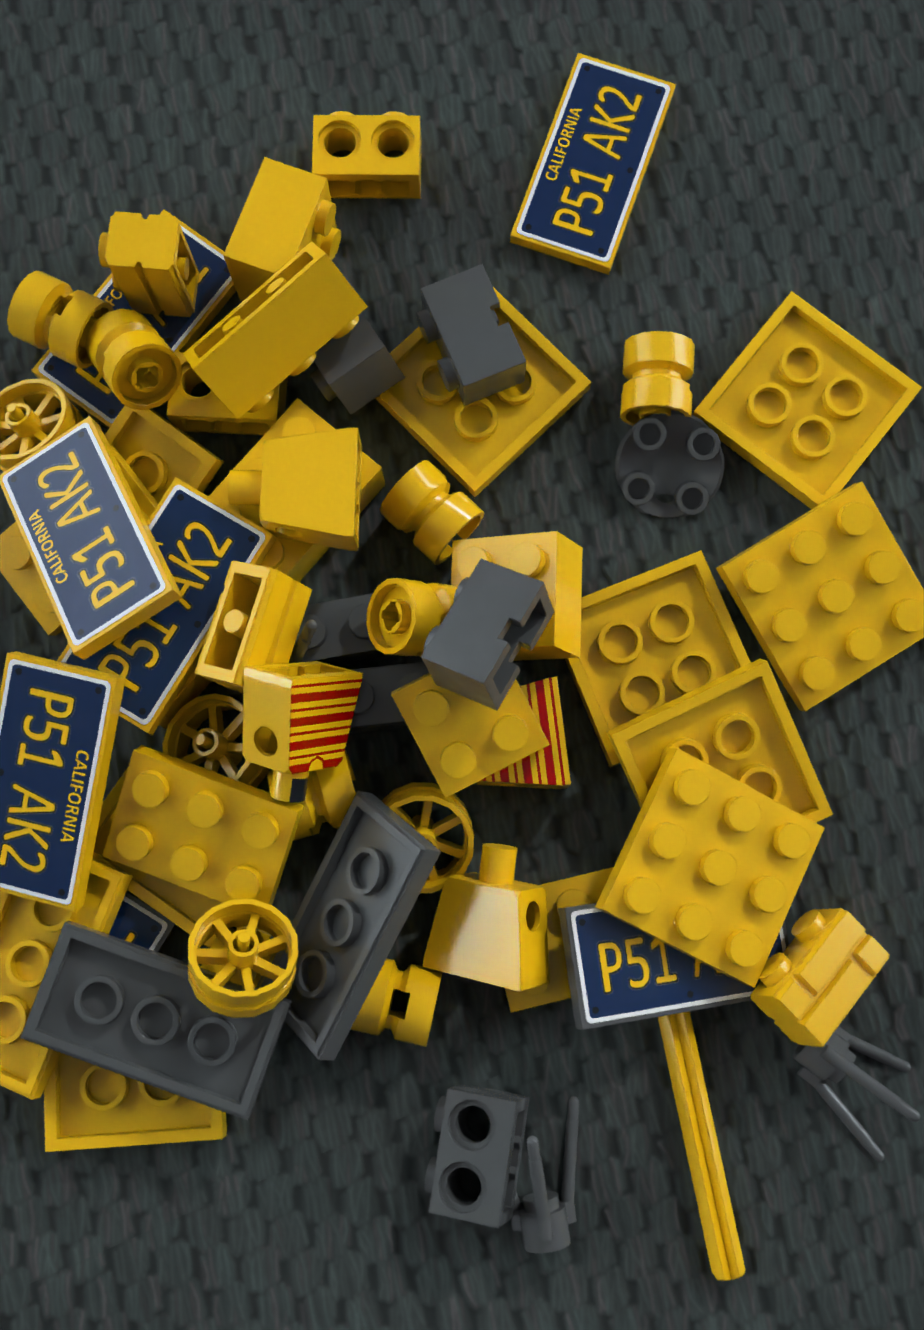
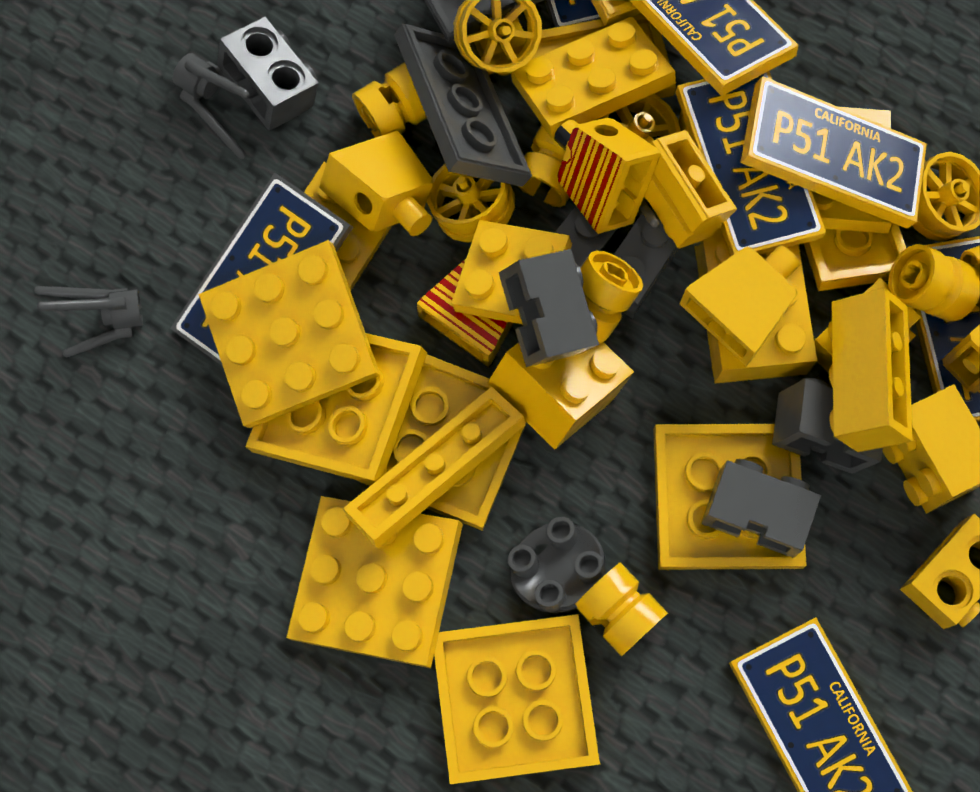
camera: 130 degrees right, 5 degrees down
(424, 505) = (667, 384): yellow wheel -> none
(701, 625) = (434, 467): none -> yellow plate
(702, 1147) = (145, 196): yellow axle -> none
(818, 975) = (167, 340): yellow brick -> none

